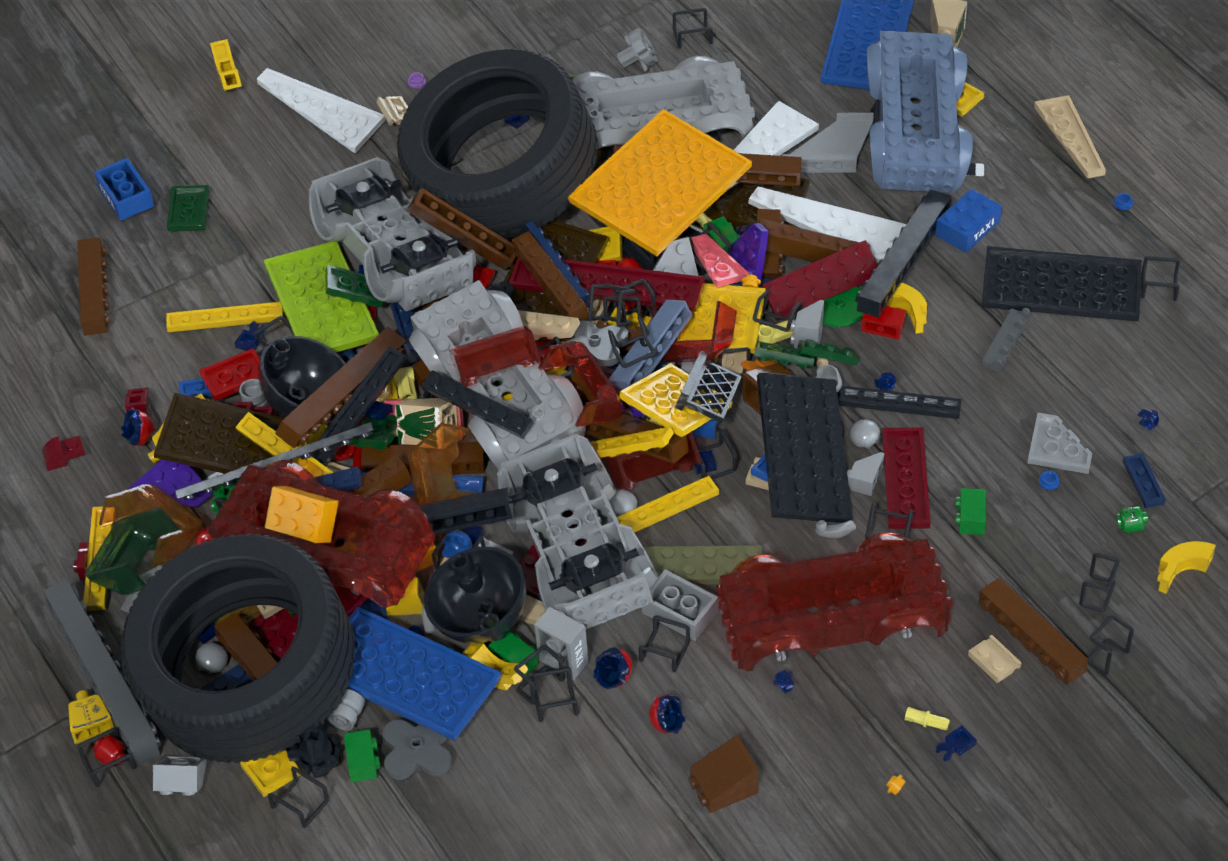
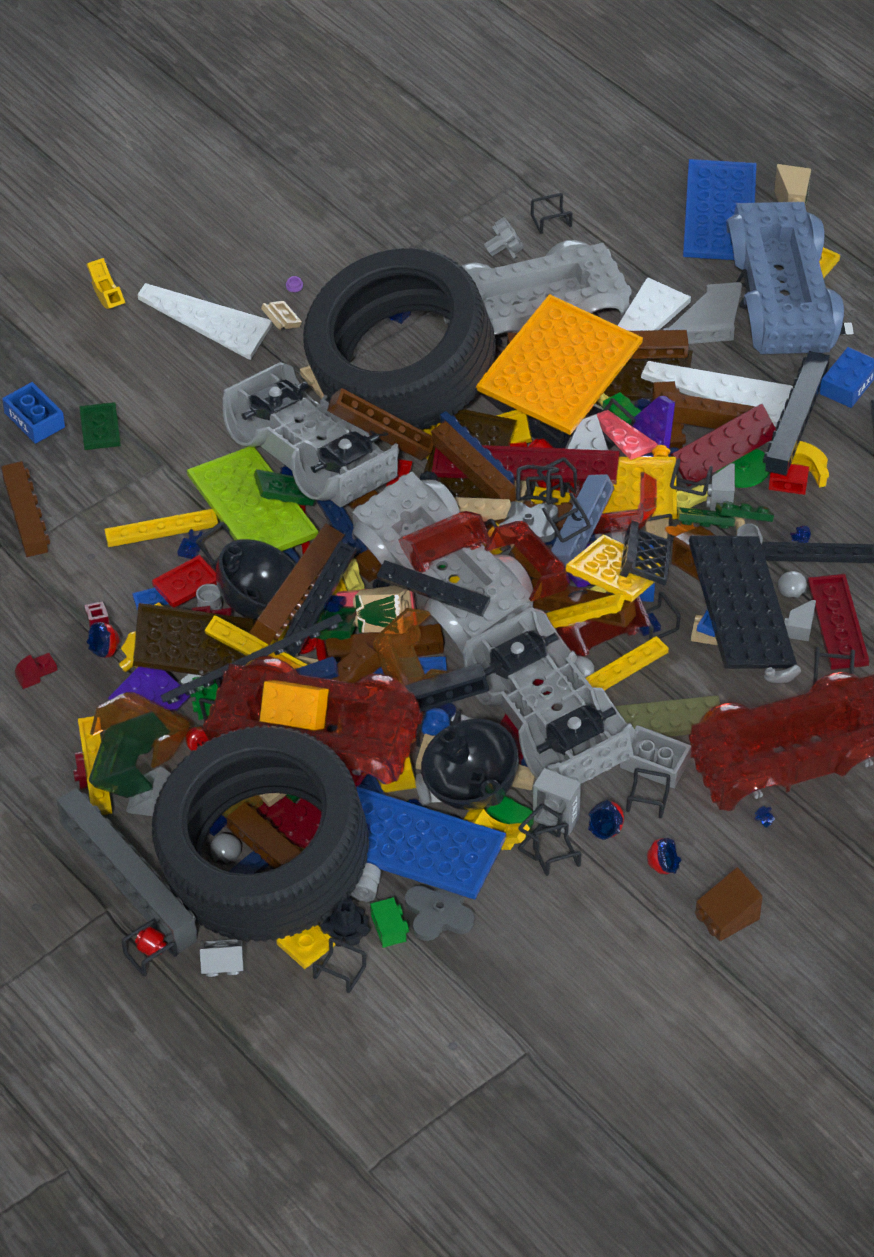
camera: 10 degrees left, 0 degrees up
(88, 717) = (123, 913): yellow torso -> none

